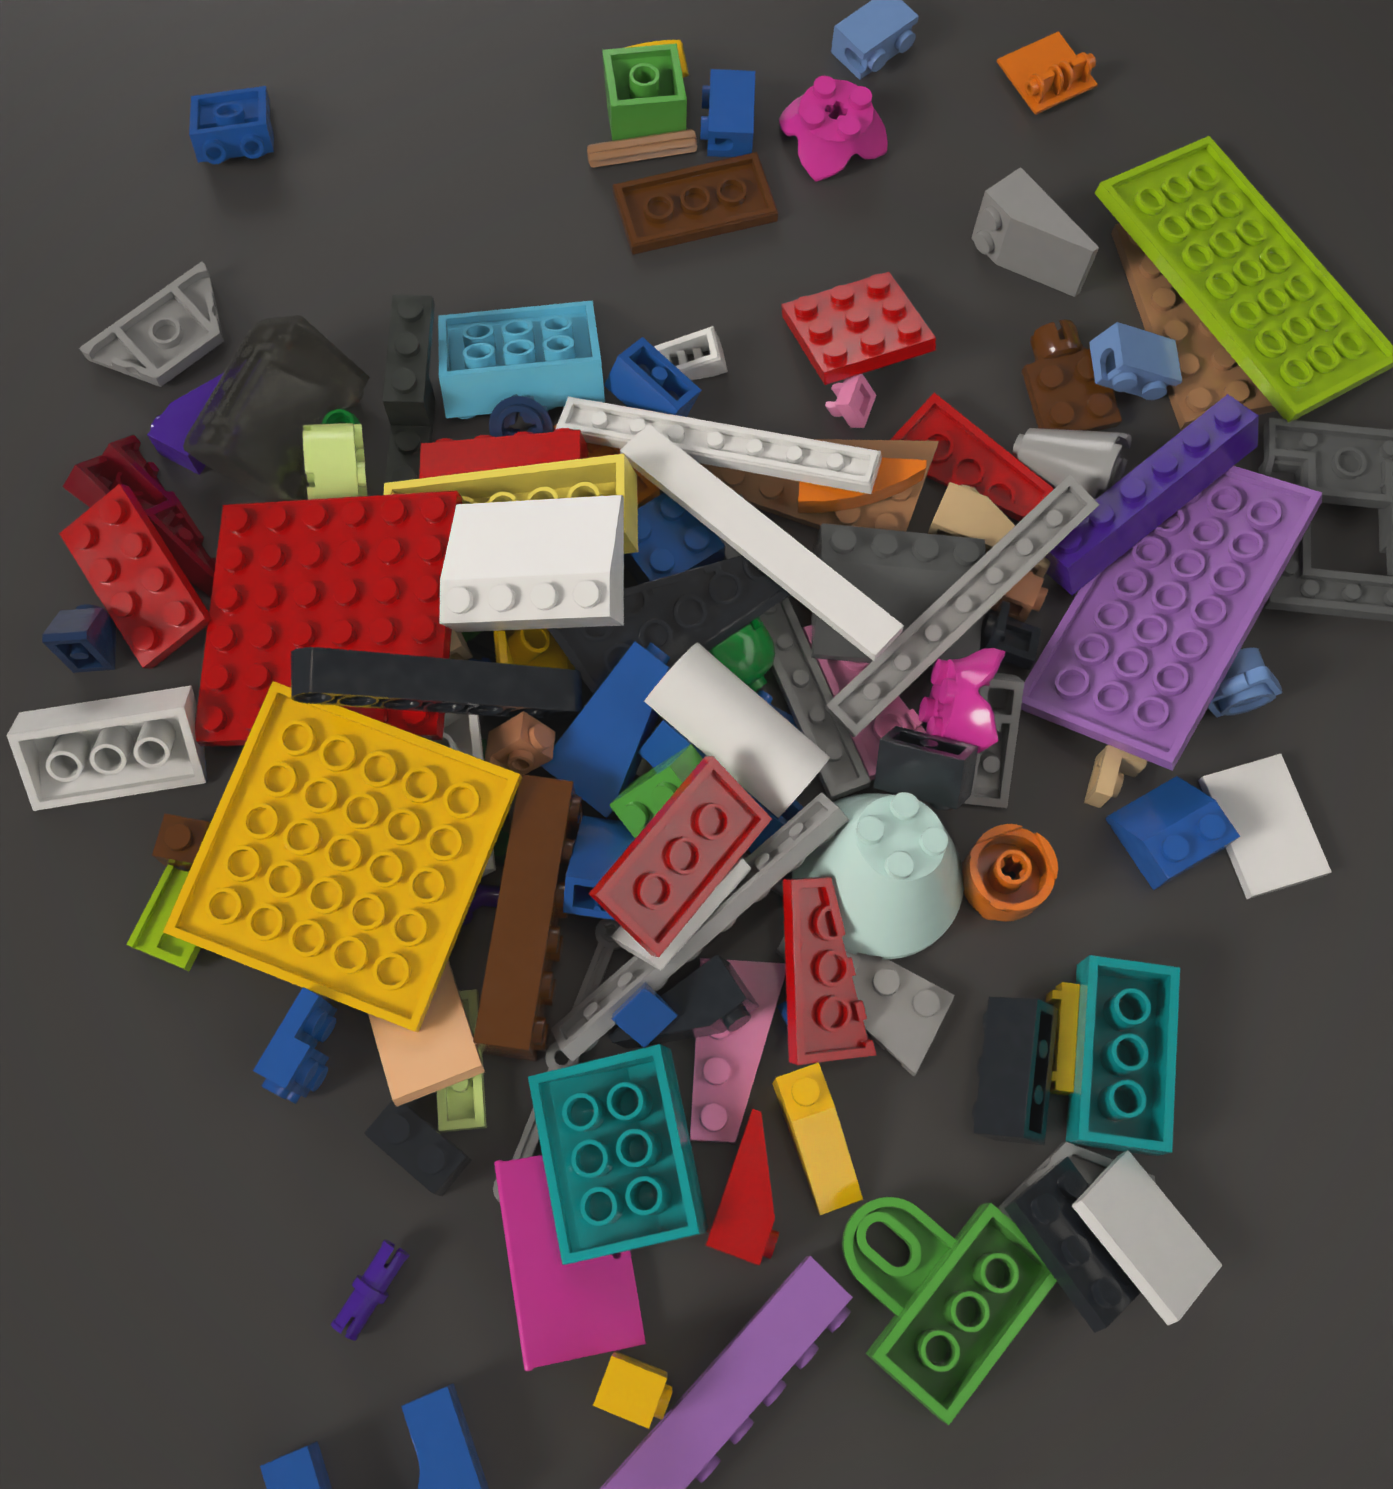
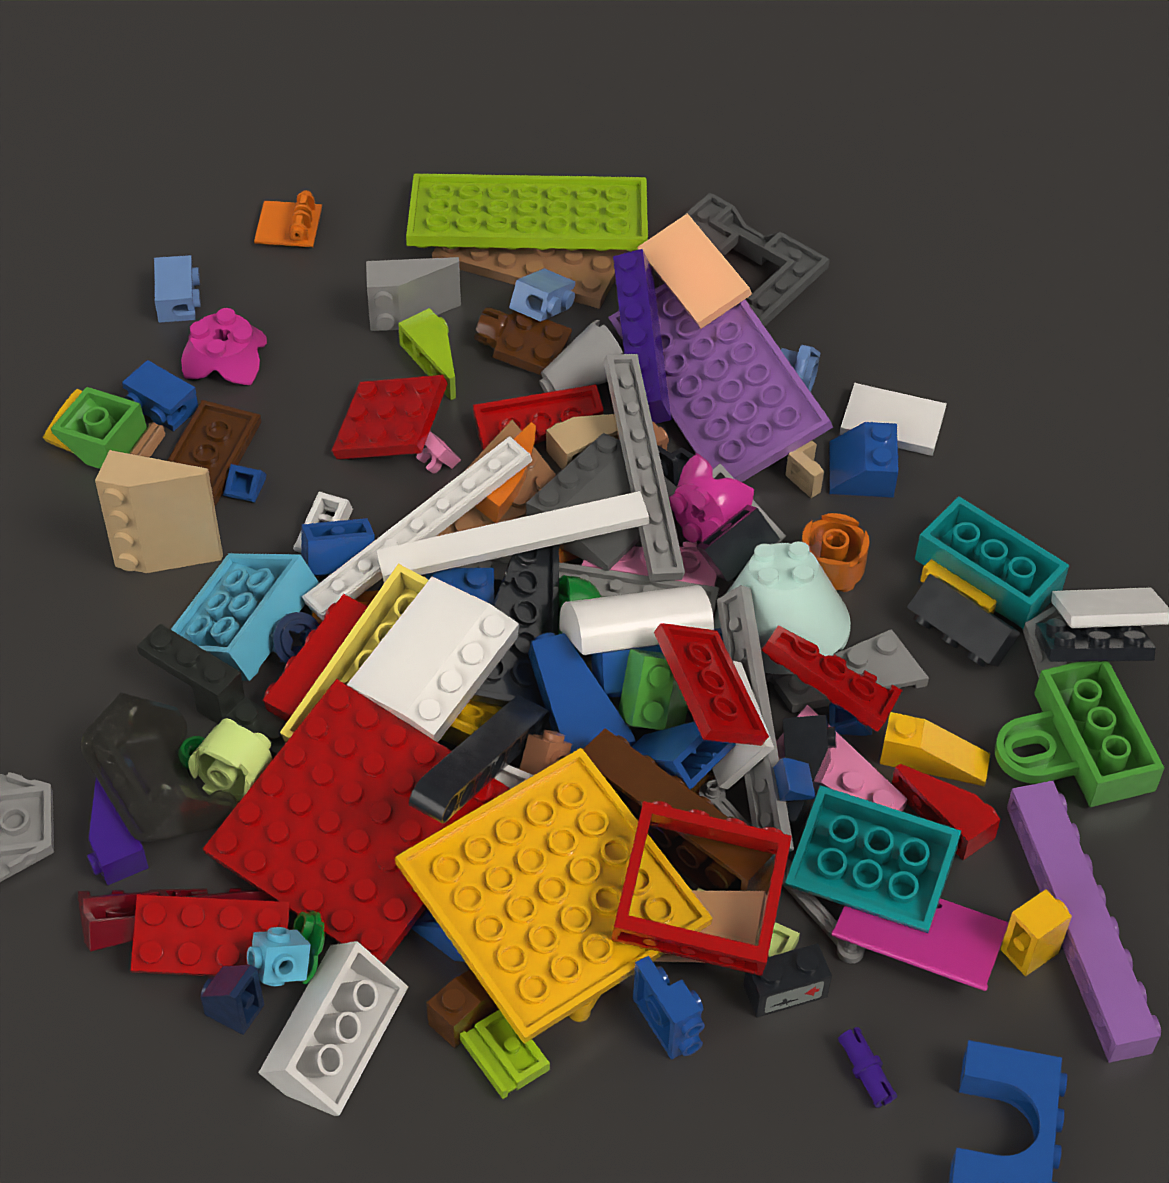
camera: 55 degrees left, 20 degrees down
(129, 648) = (279, 956): none -> medium azure brick
(185, 655) = (312, 930): none -> green plate
(352, 1026) = (687, 942): none -> red window
(542, 196) = (157, 513): none -> tan slope
(687, 256) = (244, 483): none -> blue slope
(986, 306) = (428, 344): none -> lime slope
(1281, 489) = (695, 271): none -> light nougat tile

